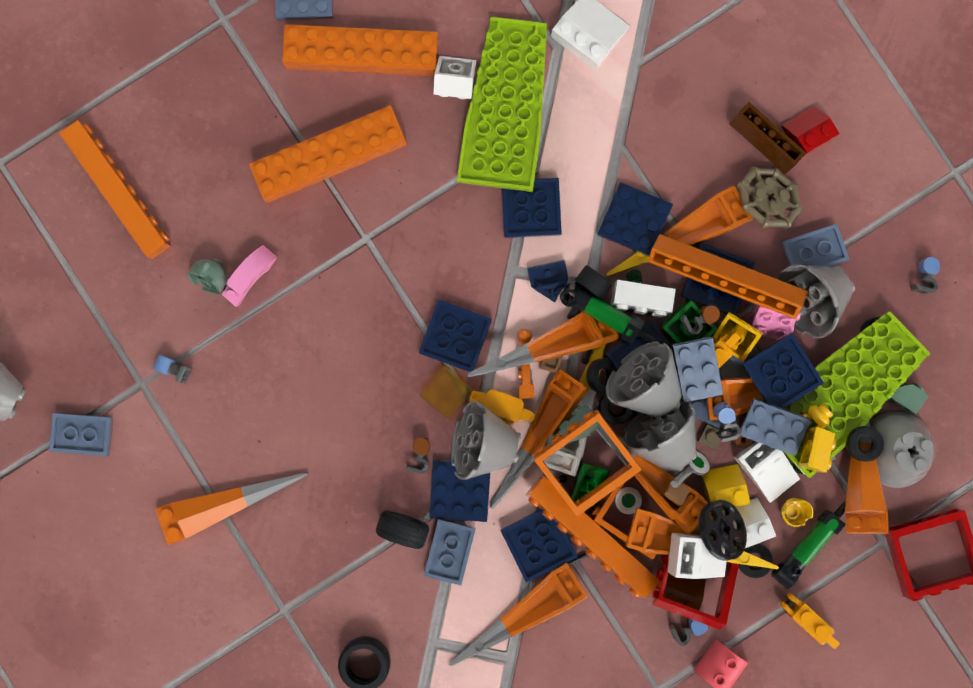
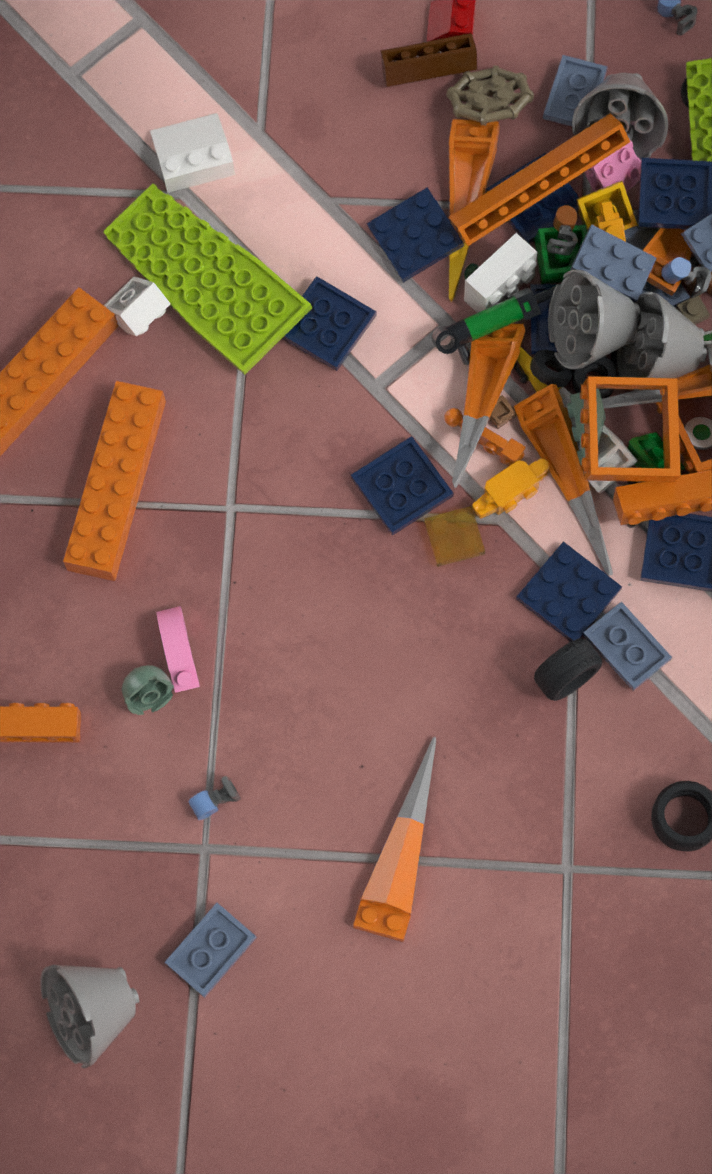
camera: 50 degrees left, 15 degrees down
(421, 447) = (494, 599): leg -> none
(482, 442) = (531, 526): light grey cone -> none
(549, 278) = (412, 356): dark blue slope -> none
(593, 282) = (448, 310): black tyre -> none

